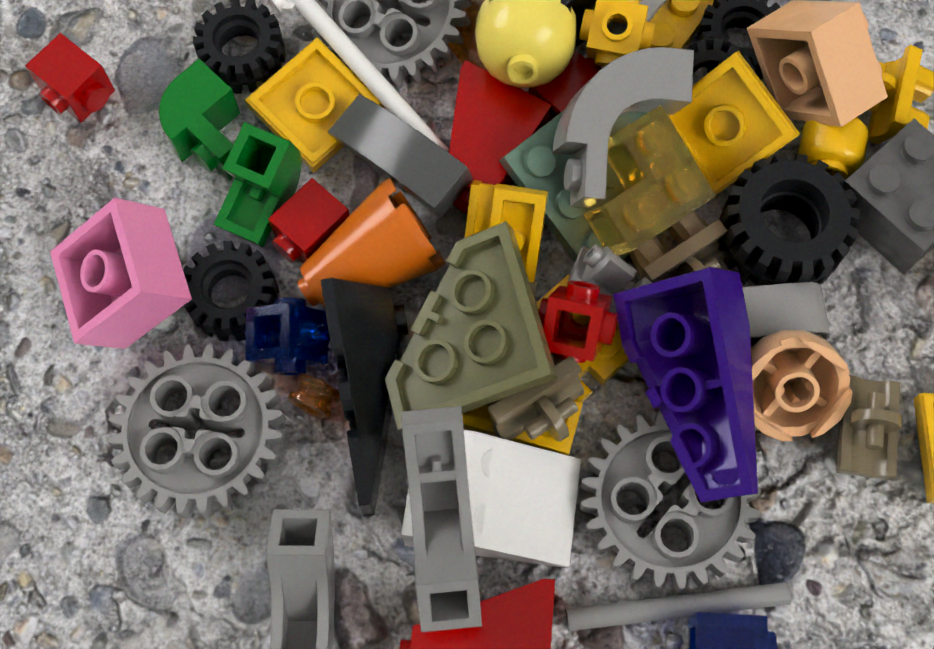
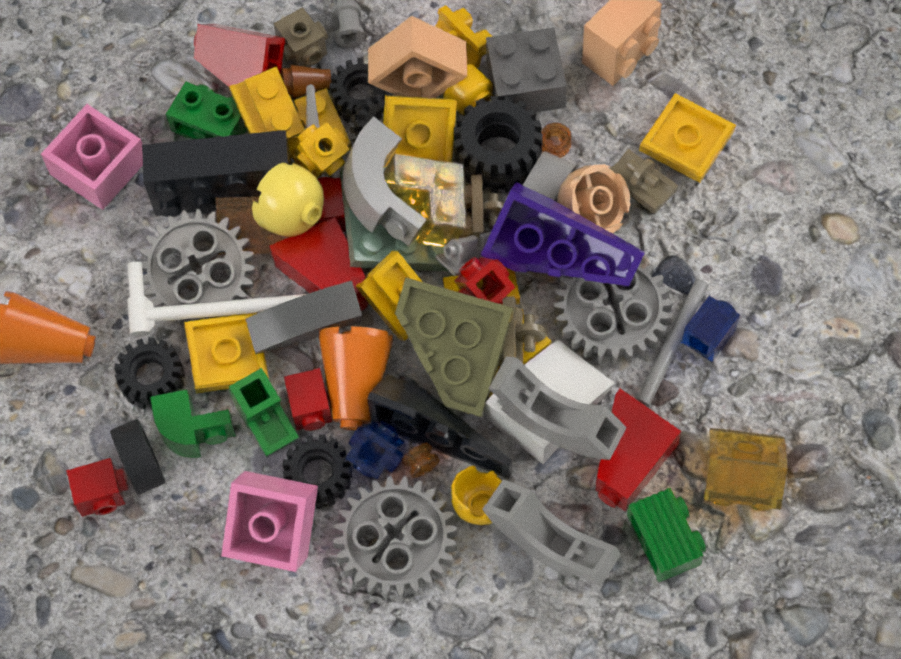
camera: 55 degrees left, 5 degrees down
(119, 91) = (137, 456): none -> black tyre
(306, 482) = (471, 492): none -> yellow hair
(859, 277) = (564, 135): none -> clear orange bush

